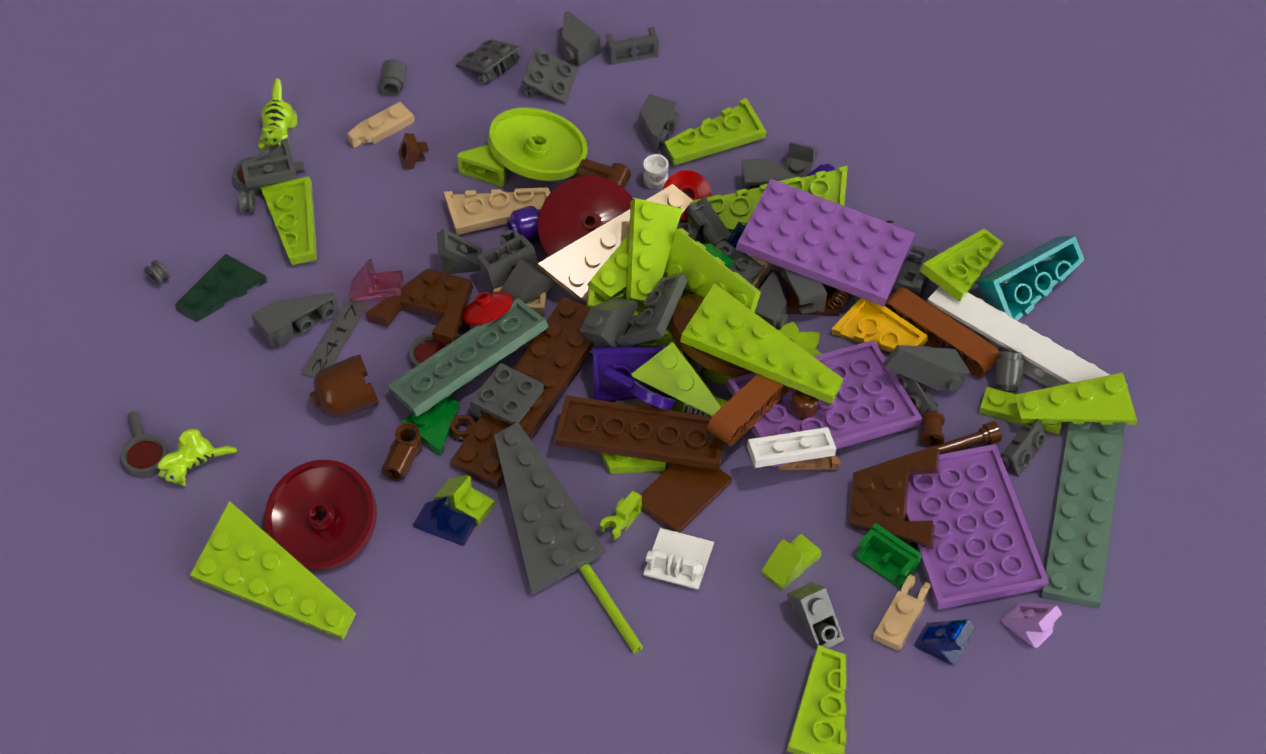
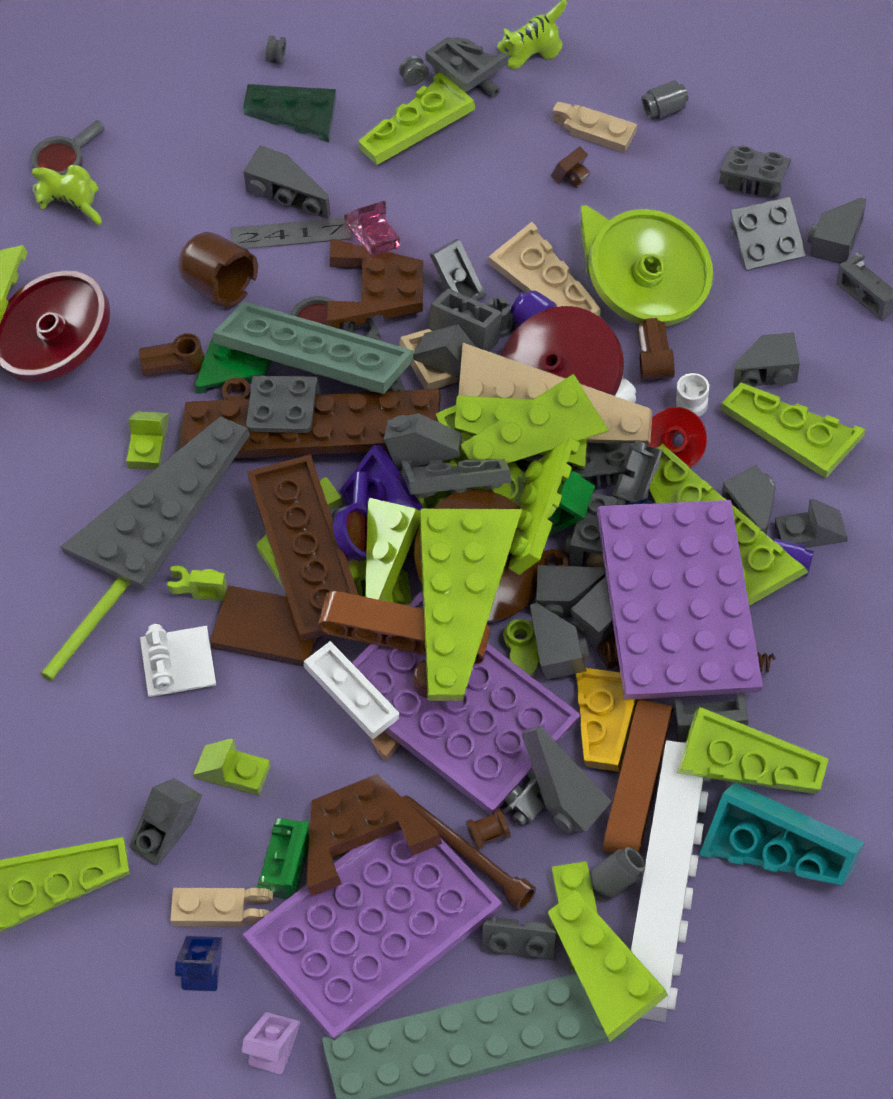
camera: 65 degrees right, 5 degrees up
(444, 522) = (110, 437): clear blue slope -> none
(487, 307) = (389, 332): red dish -> none
(813, 324) = (558, 644): none -> dark grey slope

